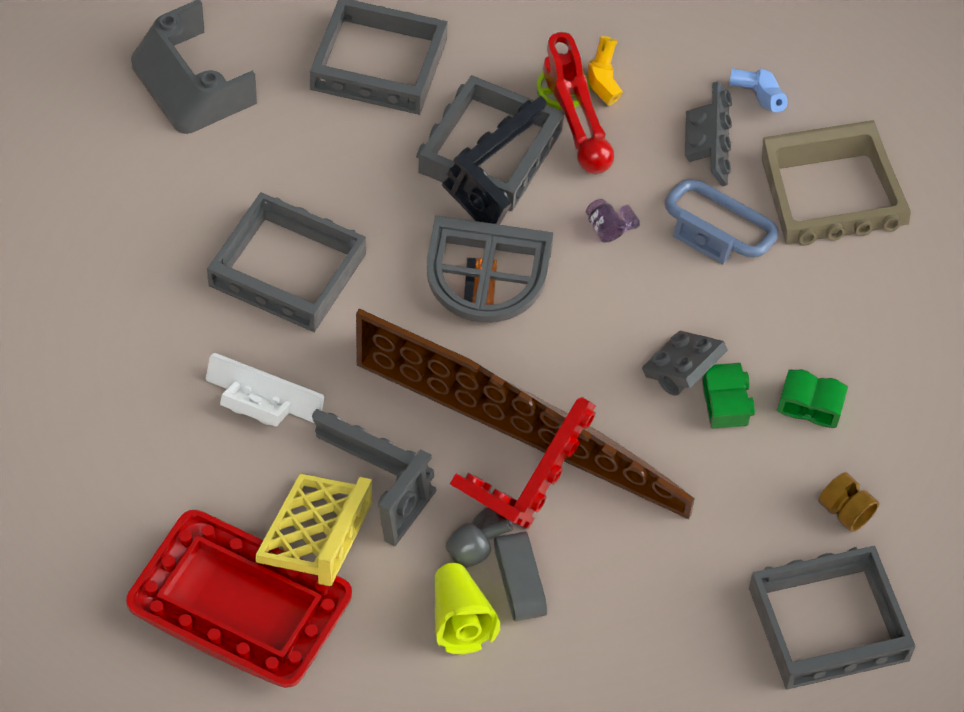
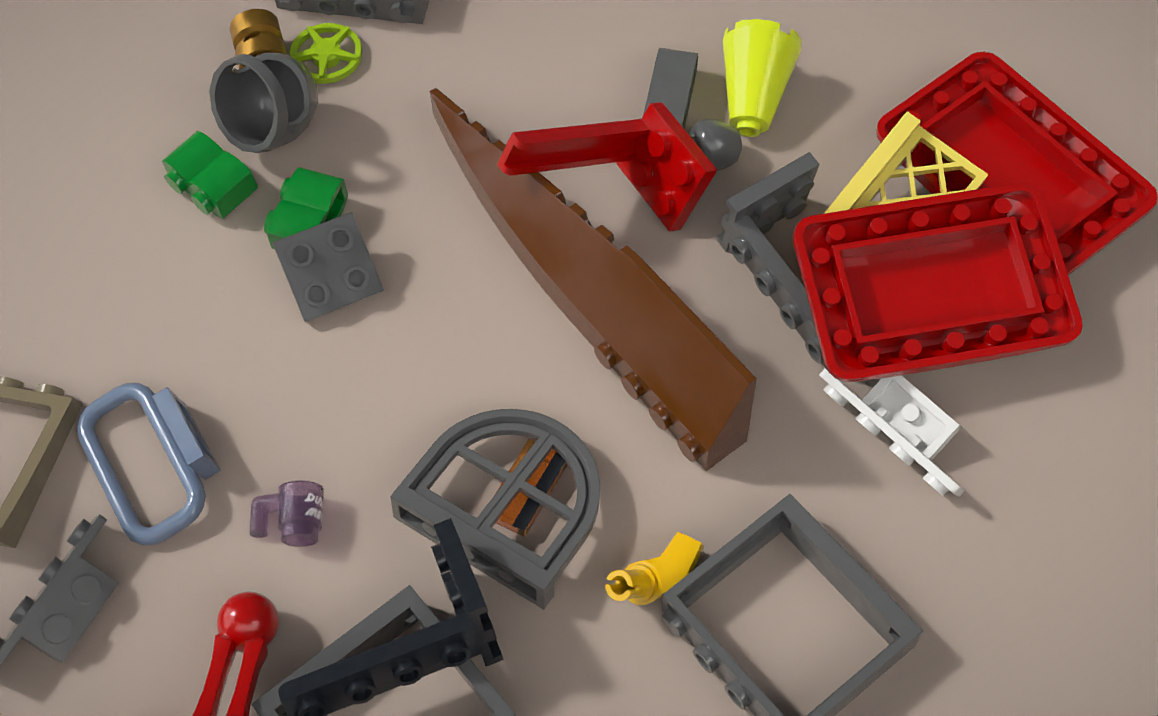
camera: 150 degrees left, 5 degrees up
(267, 466) = (936, 282): none -> red wedge
(377, 258) = (651, 578): none -> yellow arm
(801, 445) = (264, 101): none -> dark grey piece
(803, 531) = (327, 51): none -> lime wheel

